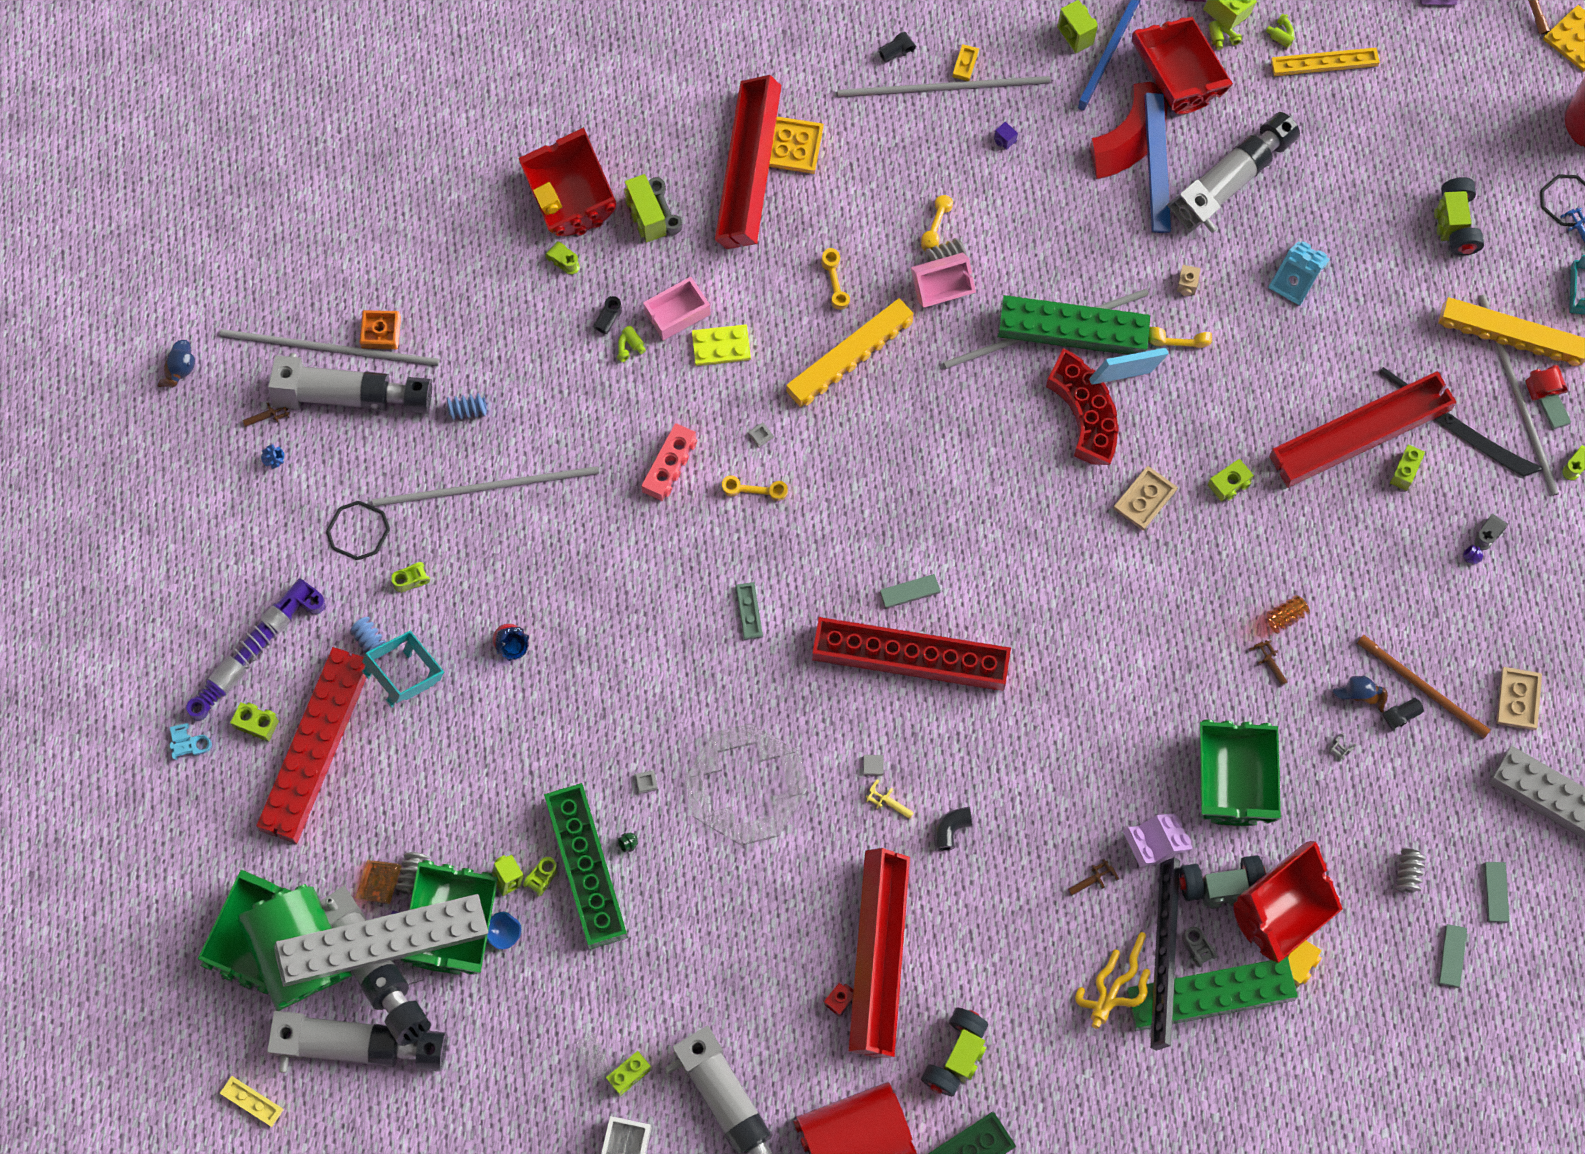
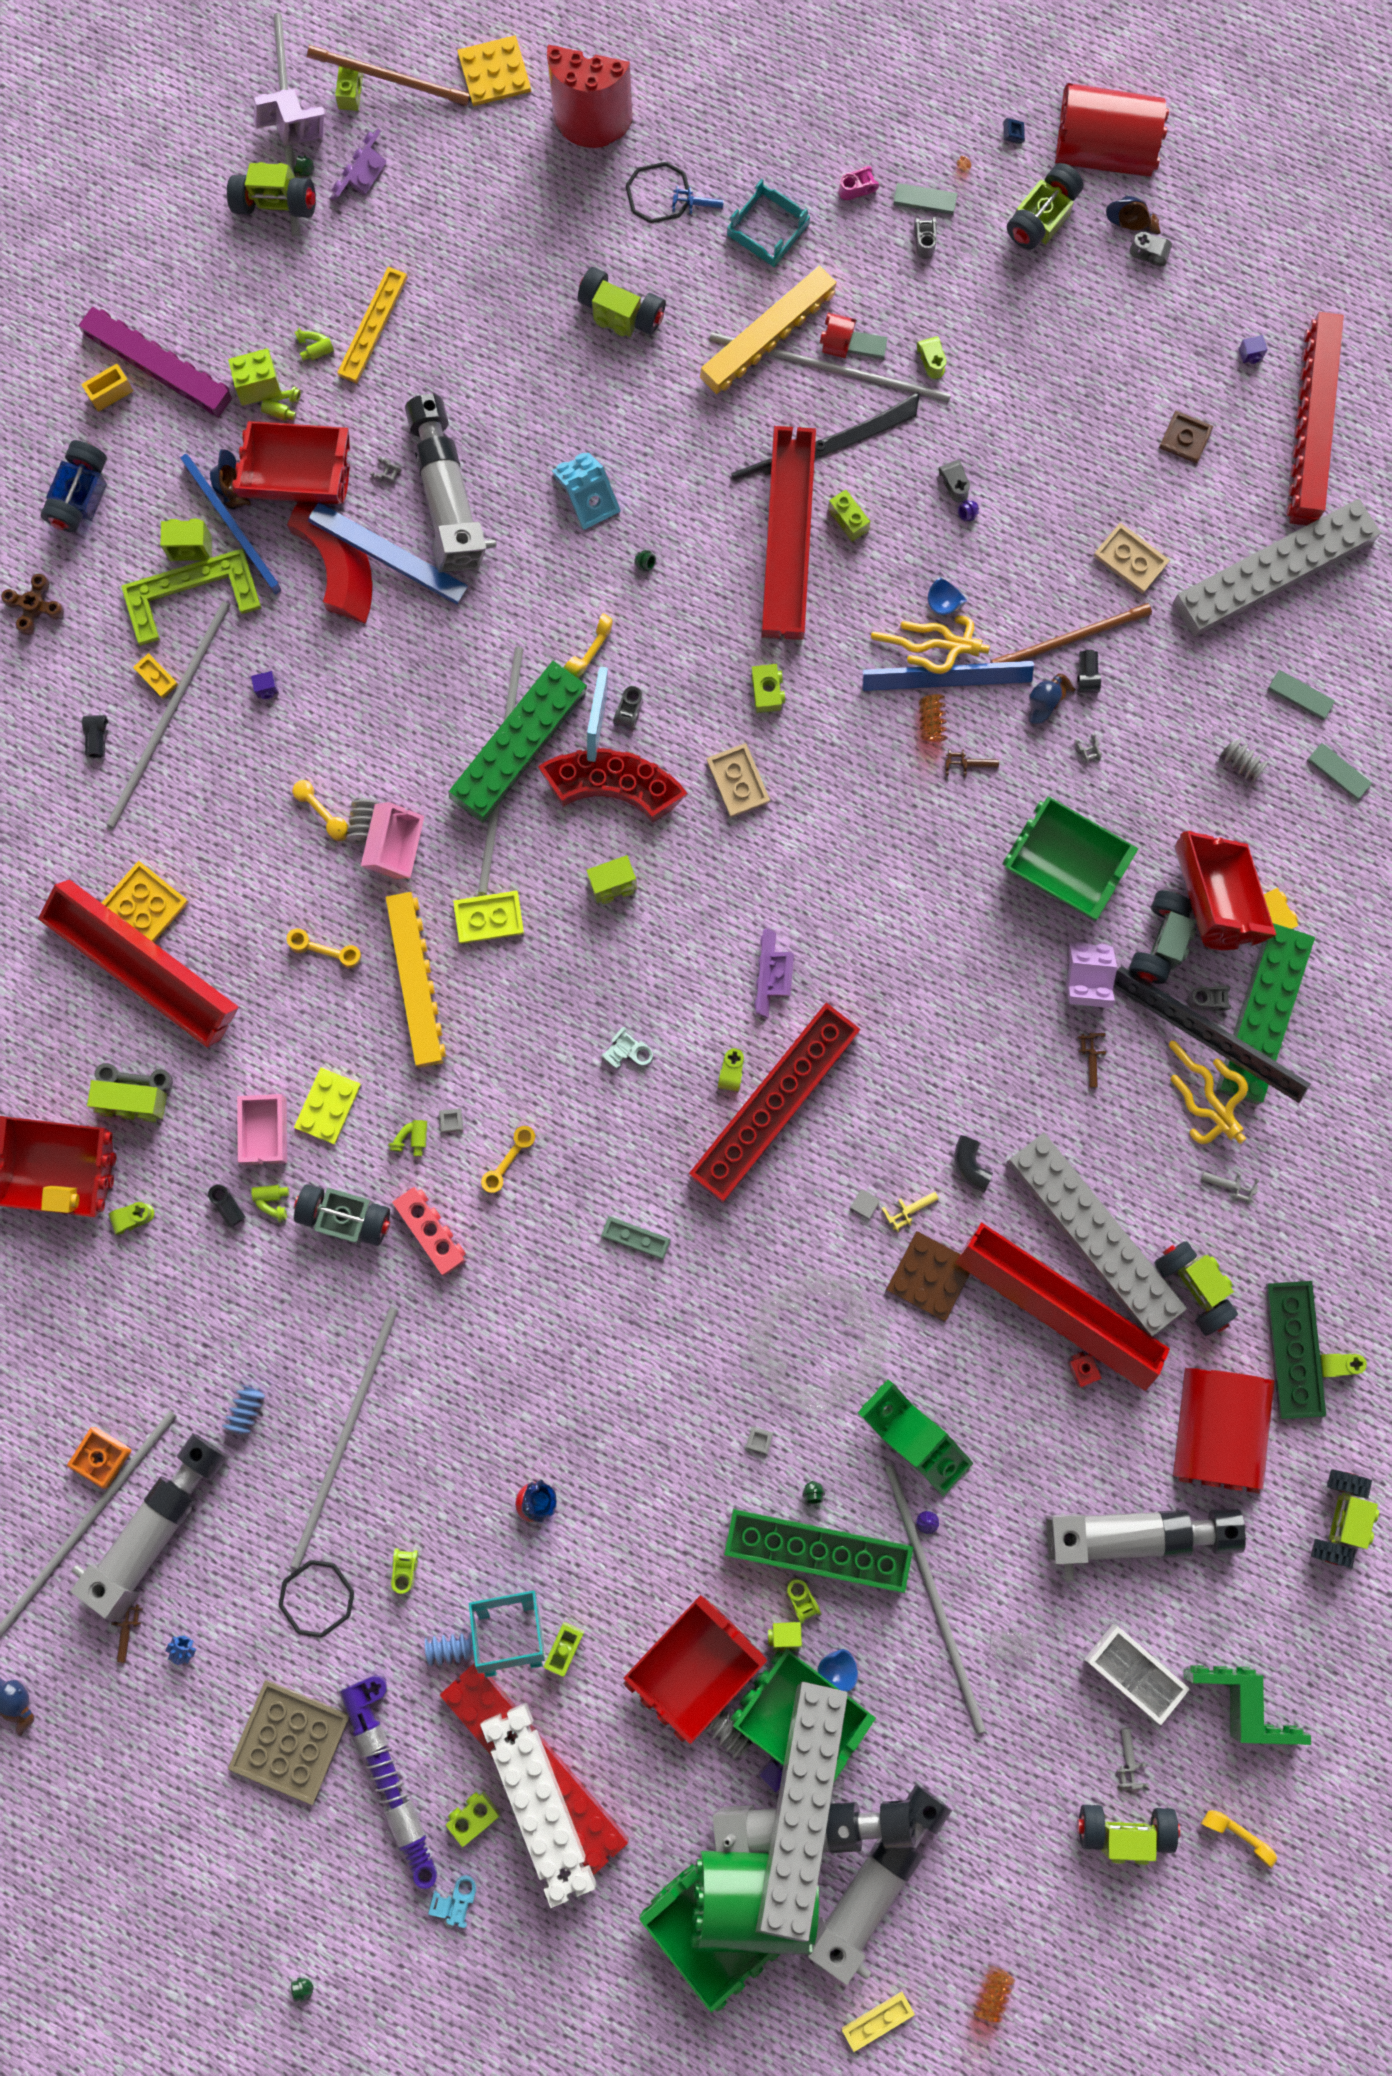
camera: 60 degrees left, 10 degrees up
(72, 668) = (301, 1989): none -> dark green plate
(245, 565) = (289, 1742): none -> dark tan plate
(288, 754) = (538, 1805): none -> white brick
(378, 881) = (719, 1773): clear orange tile -> none
(412, 719) = (563, 1649): none -> lime brick
(448, 816) = (694, 1669): none -> red cylinder
(596, 979) = (935, 1599): none -> light grey piece
(629, 1073) = (1050, 1618): lime brick -> none
(645, 393) = (342, 1215): none -> brick
(652, 941) = (927, 1522): none -> dark purple plate
(711, 892) = (915, 1437): none -> green bracket
(733, 419) = (418, 1132): none -> lime plant
(843, 842) = (929, 1276): none -> reddish brown plate
(890, 528) = (624, 1046): none -> light aqua piece
(910, 591) = (705, 1065): sand green tile -> none
(915, 612) = (731, 1074): none -> lime piece
(928, 378) = (488, 917): none -> neon yellow plate
(951, 953) = (1096, 1235): none -> light grey brick
(1010, 446) = (612, 880): none -> lime brick
(1011, 601) = (774, 973): none -> medium lavender bracket
(1018, 19) = (140, 592): none -> lime plate
(1056, 1042) = (1232, 1185): none -> light grey piece
(1141, 22) = (222, 479): none -> hair
(1147, 392) = (628, 712): none -> dark grey piece
(1188, 280) = (532, 601): tan brick -> none
(1214, 130) = (383, 475): none -> light grey piece
(1272, 342) = (645, 560): none -> dark green plate
(1329, 608) = (958, 676): none -> blue tile
(1356, 599) = (956, 644): none -> yellow plant
(1390, 572) = (945, 597): none -> blue helmet

